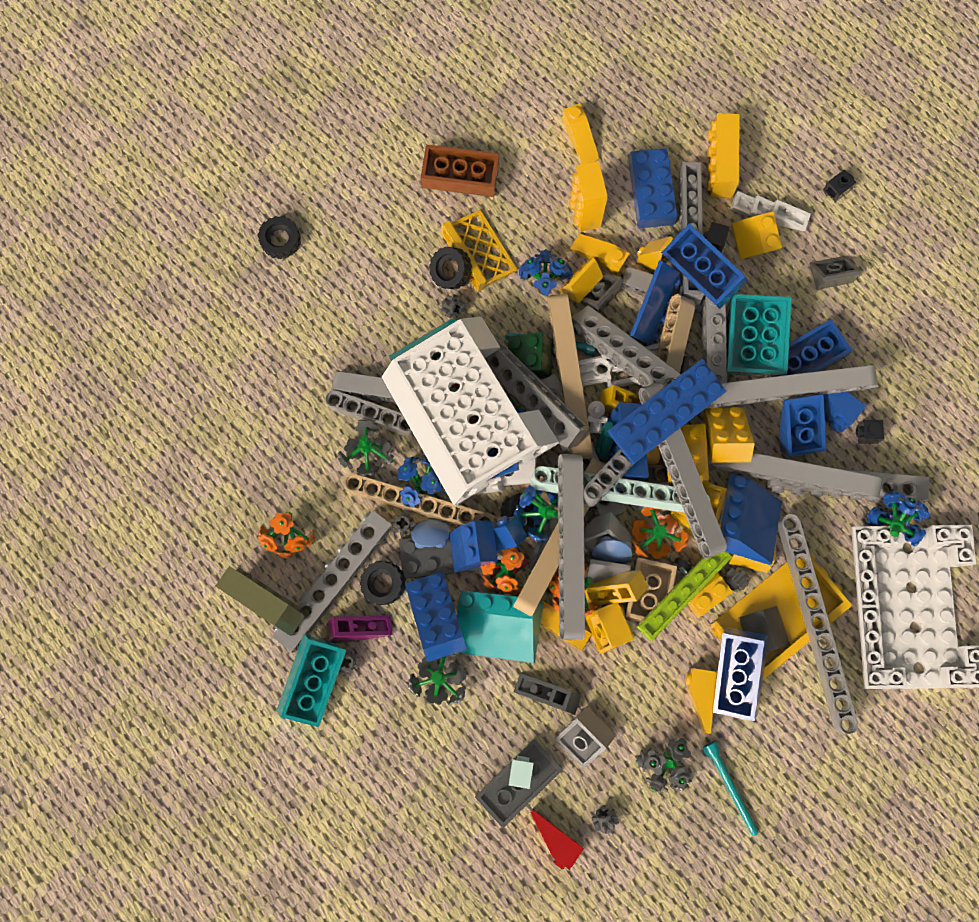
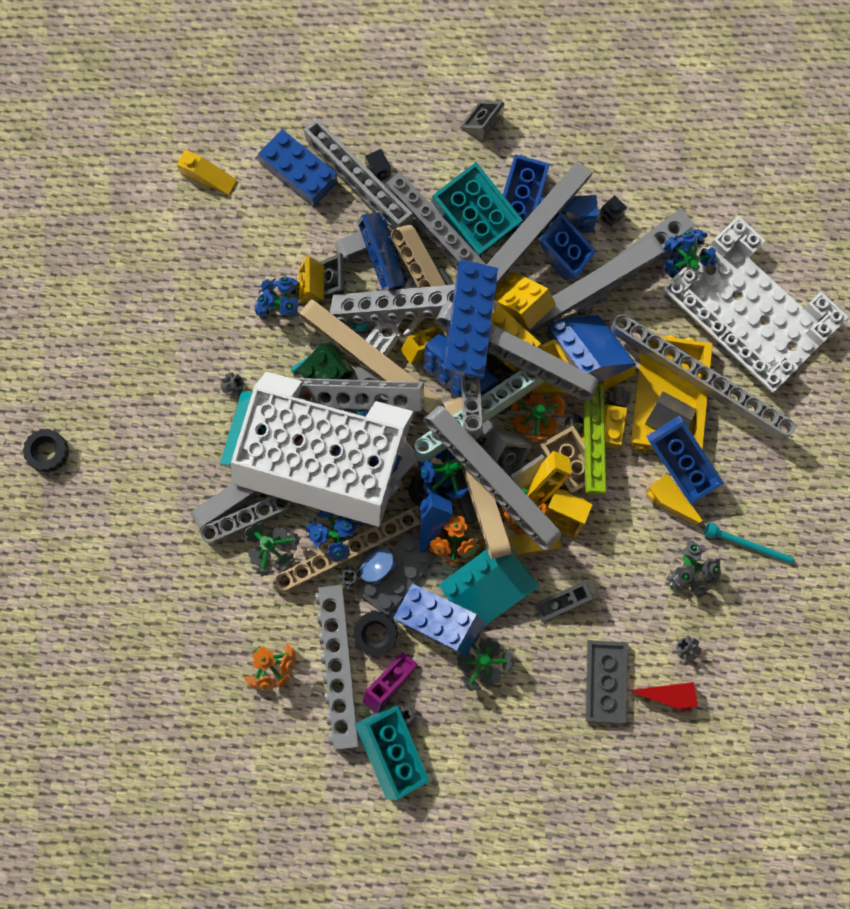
camera: 50 degrees left, 0 degrees up
(261, 599) = (299, 730): olive brick -> none
(437, 264) = (191, 364): black tyre -> none
(454, 239) = (203, 338): yellow fence -> none
(460, 170) = (140, 277): dark orange brick -> none
(473, 545) = (418, 544): blue slope -> none
(521, 772) = (603, 671): light aqua brick -> none
(585, 737) = (621, 604): light grey slope -> none
(588, 196) = (260, 213): yellow brick -> none
(596, 417) = (417, 371): white hips -> none
(604, 442) = (439, 382): teal tile -> none
(606, 254) = (313, 245): yellow slope -> none
(612, 551) = (519, 456): medium blue dish -> none
(651, 253) = (345, 214): yellow slope -> none
(704, 266) = (396, 191): blue brick -> none
(723, 155) = (328, 99): yellow brick -> none
(756, 235) = (405, 138): yellow slope -> none
(785, 214) = (400, 112): white slope -> none
(840, 185) = (430, 52): black brick -> none

